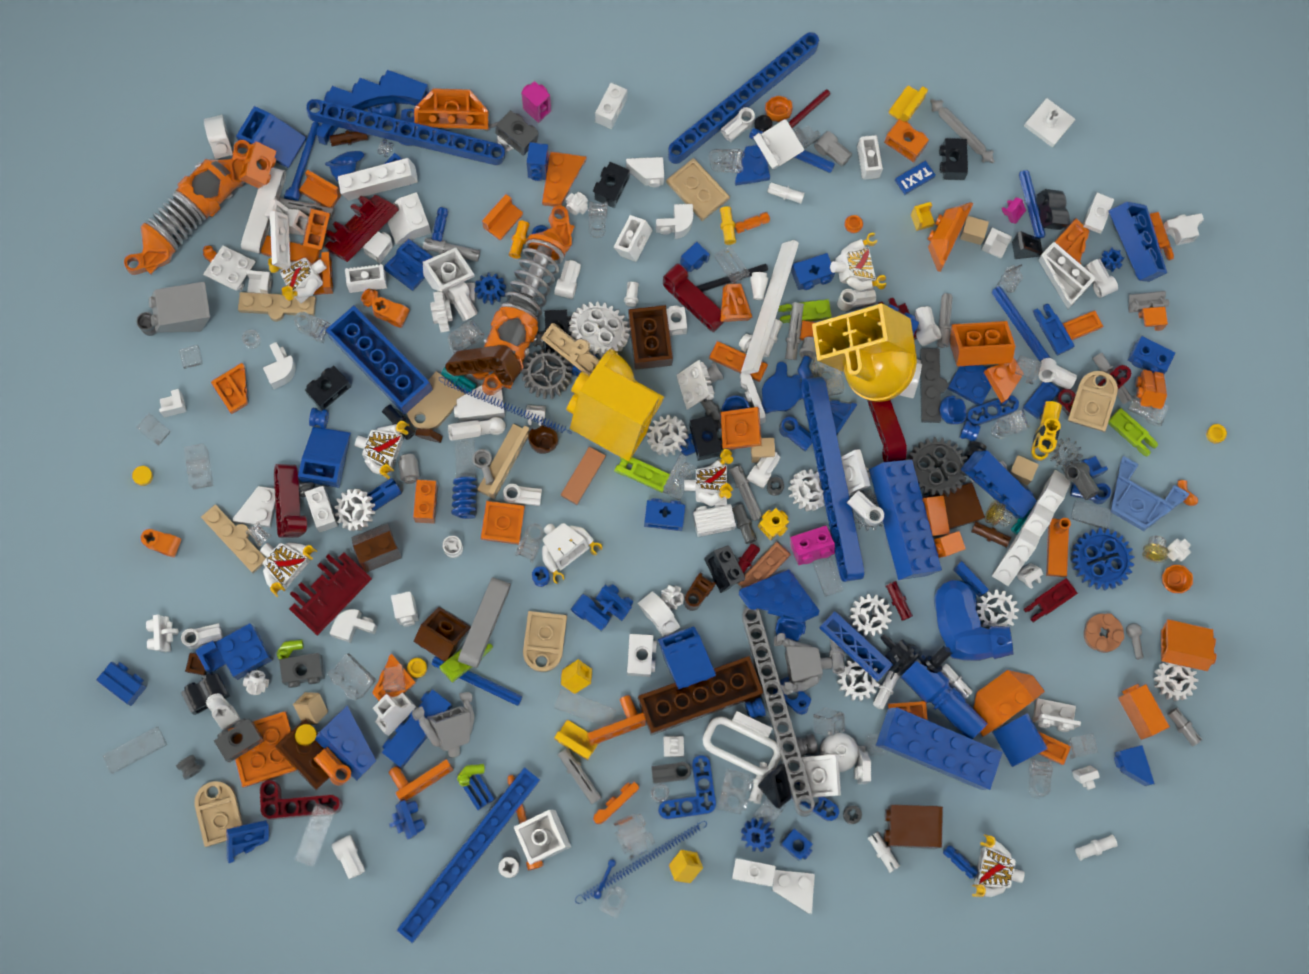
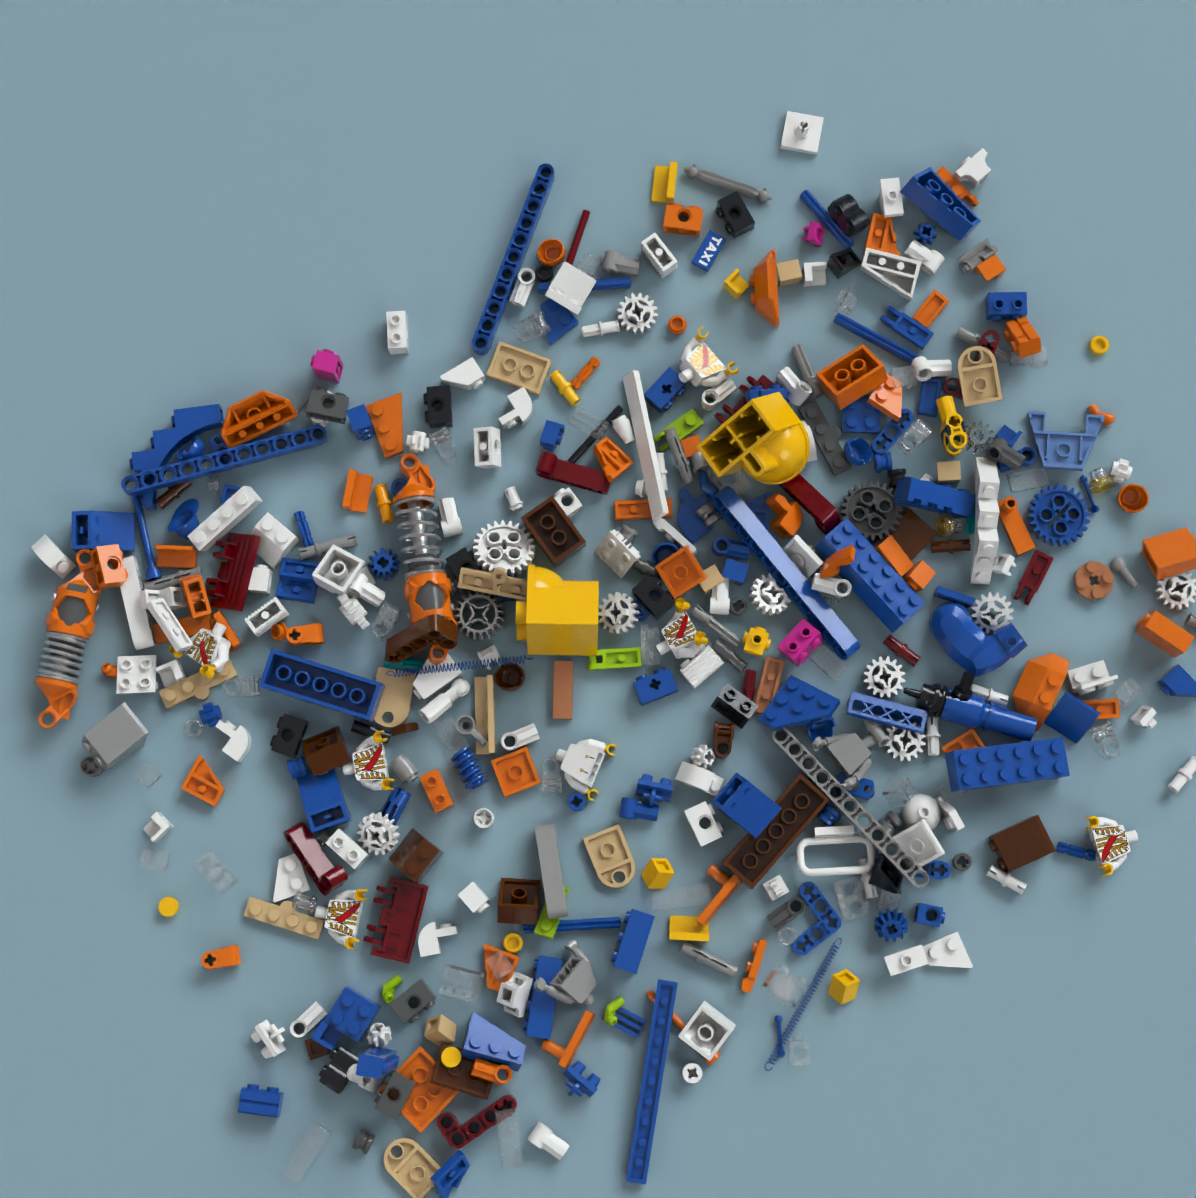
camera: 20 degrees left, 5 degrees up
(236, 698) = (376, 1062): none -> blue brick
(271, 334) = (210, 714): none -> blue gear
(350, 417) = (326, 751): none -> reddish brown slope
(521, 721) = (632, 940): none -> blue brick
(789, 454) = (735, 571): none -> blue panel
(792, 394) = (709, 514): none -> flat silver wheel
(832, 198) = (644, 312): none -> white gear
(862, 431) = (788, 517): none -> orange brick
(877, 490) = (832, 564): none -> orange slope
(1132, 431) = (1024, 384): lime hinge -> none
(1138, 571) = (1094, 508): none -> blue hinge

